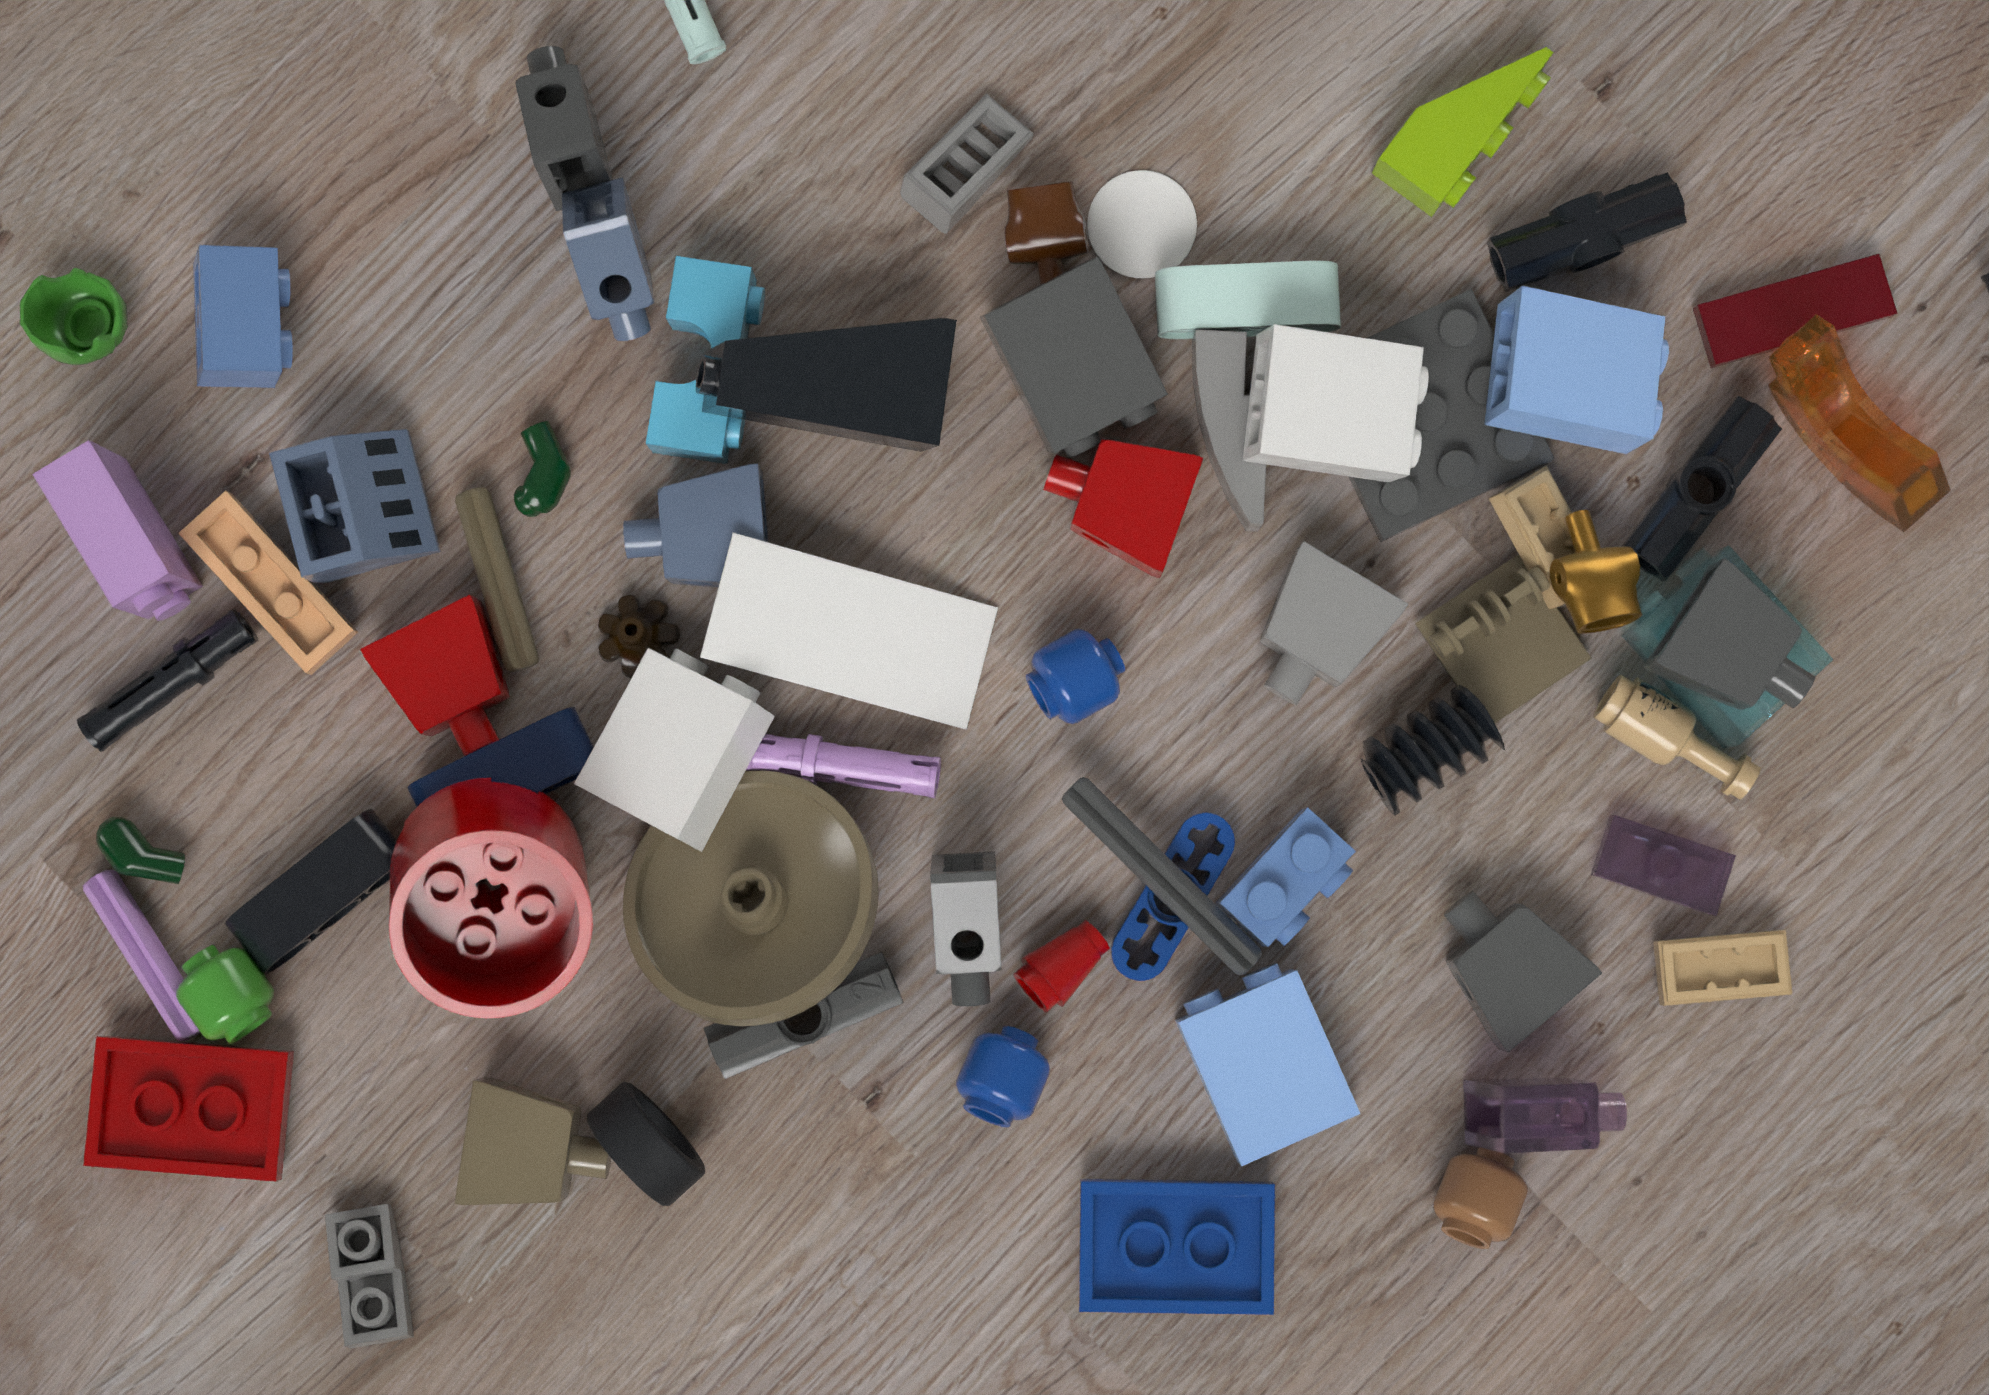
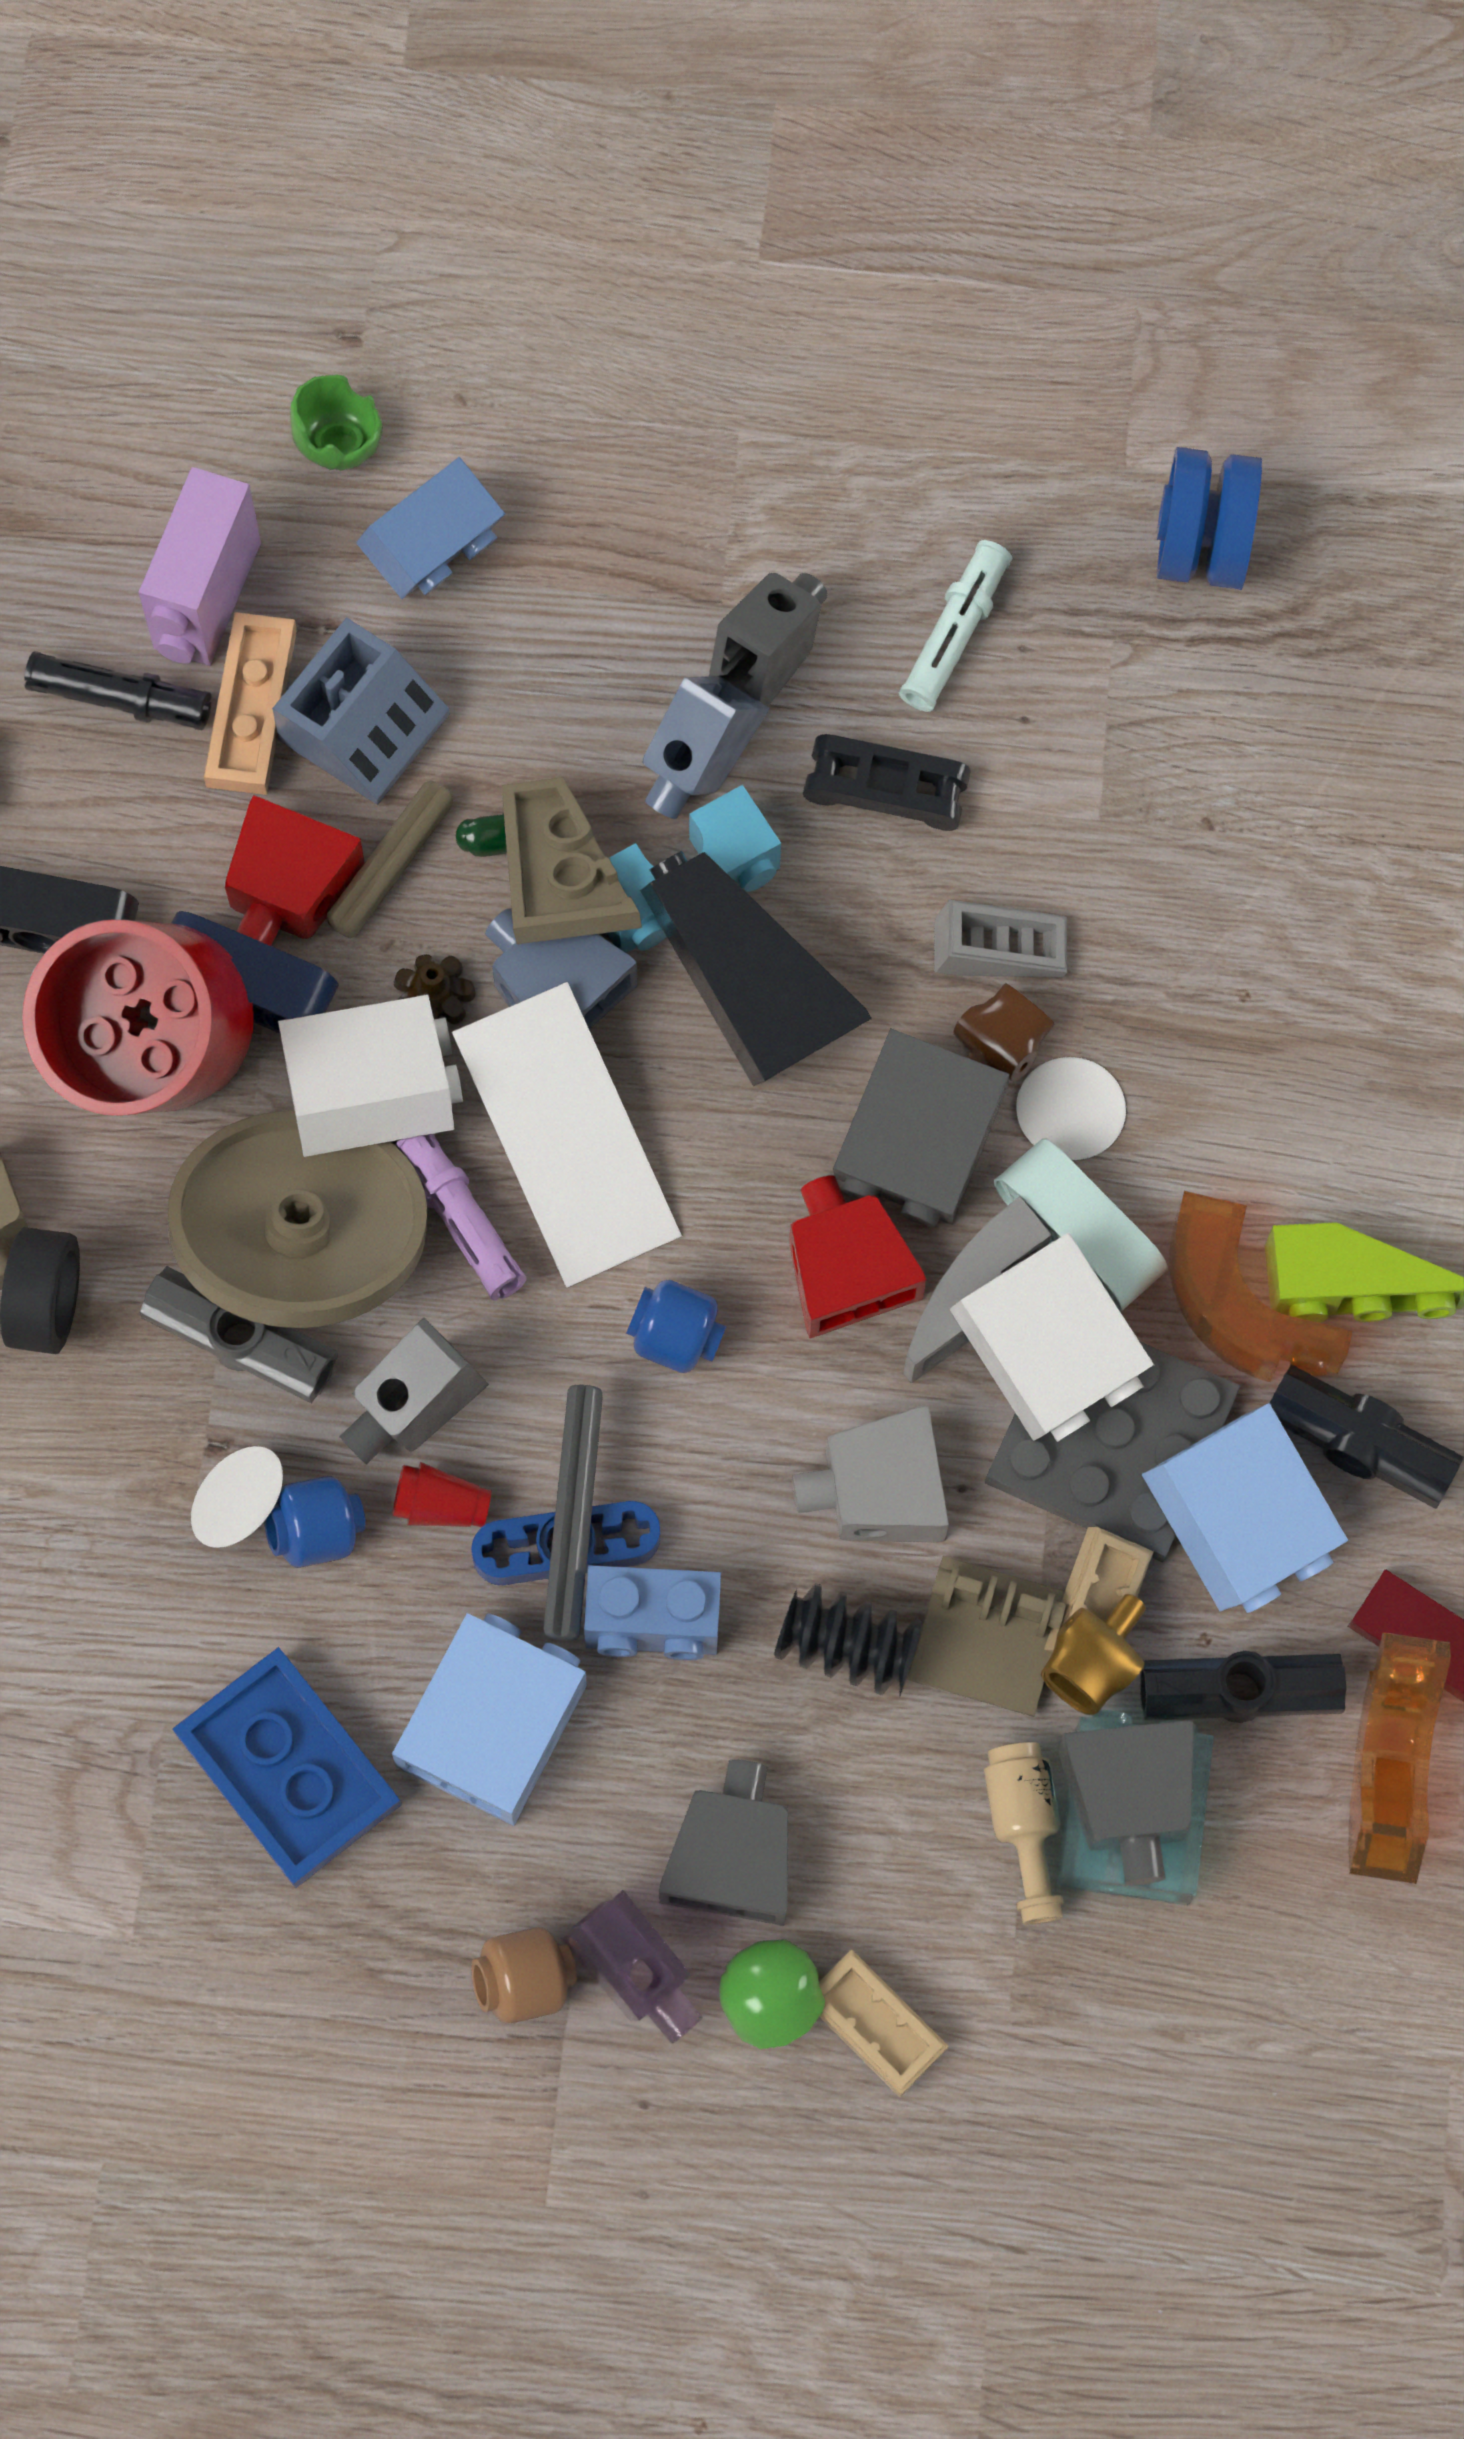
camera: 45 degrees right, 15 degrees down
(629, 461) = (557, 869): none -> dark tan wing
(757, 136) = (887, 780): none -> black plate
(935, 1119) = (236, 1496): none -> white sticker
(1399, 251) = (1225, 1310): none -> clear orange arch
(1642, 1026) = (771, 1993): none -> bright green hair
(1663, 865) = (918, 1910): clear purple plate -> none

